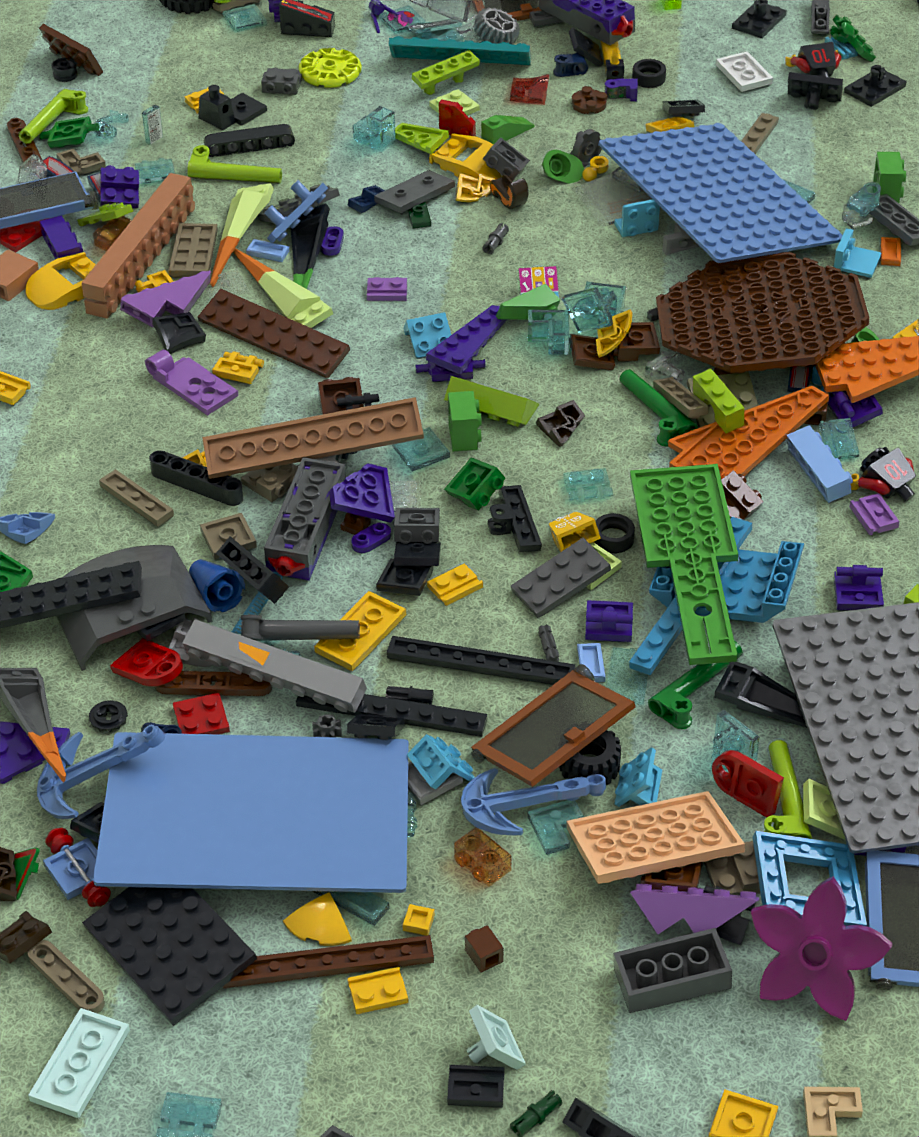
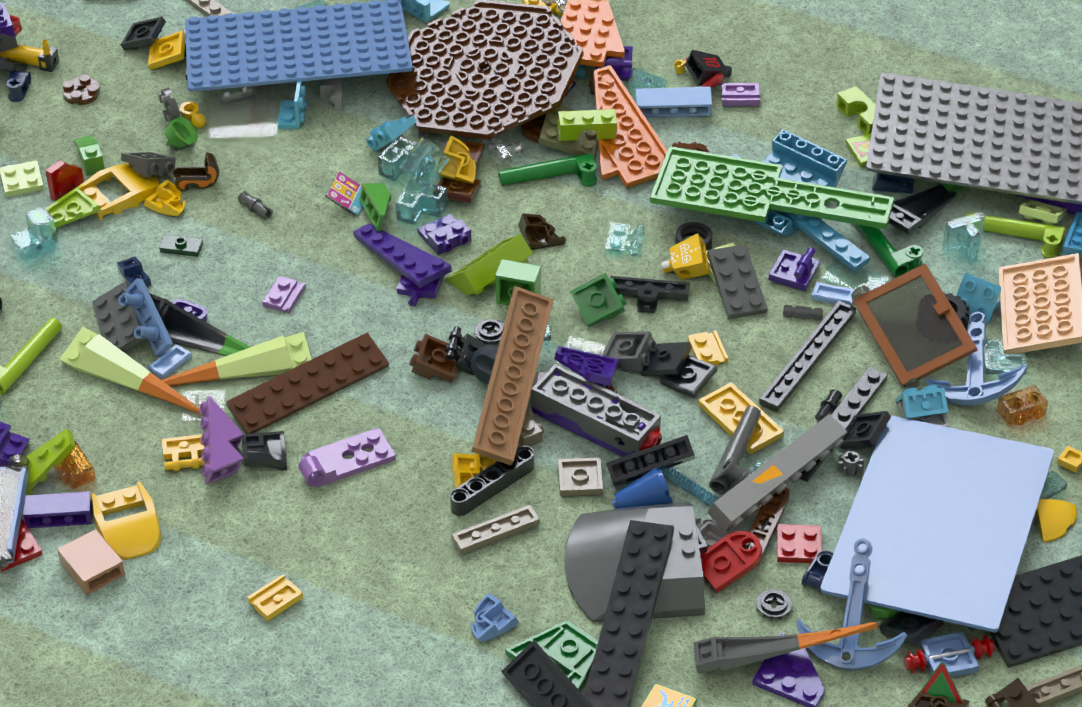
camera: 70 degrees left, 0 degrees up
(138, 245) = (118, 445): nougat piece -> none
(193, 249) = (137, 413): dark tan plate -> none
(237, 367) = (346, 423): yellow plate -> none
(371, 537) = (625, 385): dark purple plate -> none
(414, 191) = (149, 237): dark grey plate -> none
(427, 332) = (374, 278): medium azure bracket -> none
(523, 363) = (445, 234): none -> plate
(530, 90) = (33, 122): clear red plate -> none
(621, 88) = (83, 61): dark purple leg -> none
(635, 283) = (388, 132): none -> medium azure plate
(649, 80) = (68, 31): black tyre -> none
(680, 397) = (556, 150): dark tan plate -> none
(748, 782) = (1006, 239): red plate -> none
(858, 587) = (821, 128): dark purple plate -> none
(872, 457) = (685, 71): black gear -> none

